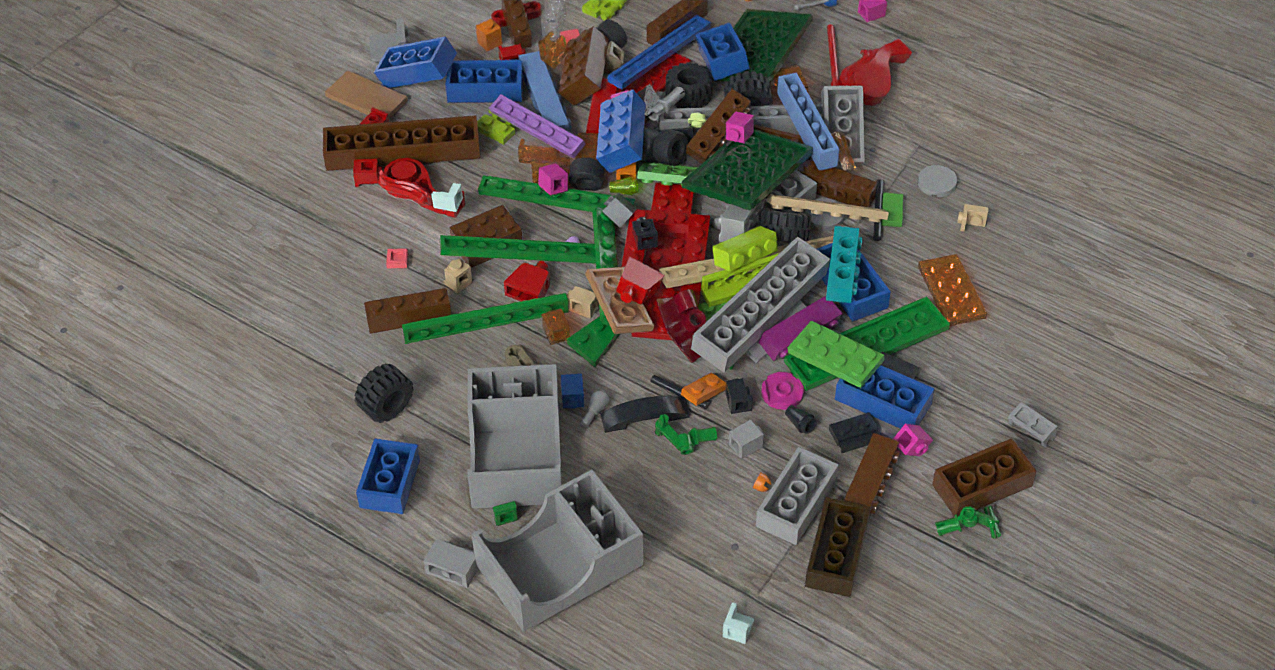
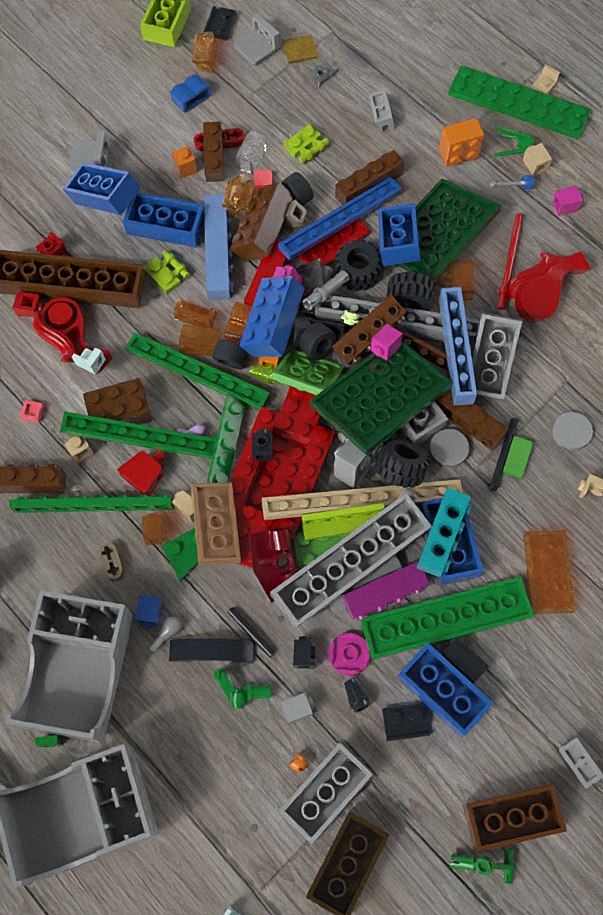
camera: 15 degrees right, 20 degrees up
(364, 94) = (53, 211): medium nougat tile -> none
(510, 52) = (197, 191): red brick -> none
(537, 126) = (197, 289): medium lavender plate -> none
(553, 179) = (195, 356): dark pink brick -> none
(618, 209) = (248, 406): brick -> none
(638, 282) = (236, 510): torso -> none
(703, 389) = (273, 637): orange plate -> none
(745, 248) = (351, 492): lime brick -> none
(835, 209) = (451, 452): tan plate -> none
(836, 354) = (407, 639): bright green plate -> none
(844, 152) = (484, 389): clear orange tile -> none
(873, 472) = (403, 787): reddish brown brick -> none
(913, 440) = (456, 754): dark pink brick -> none

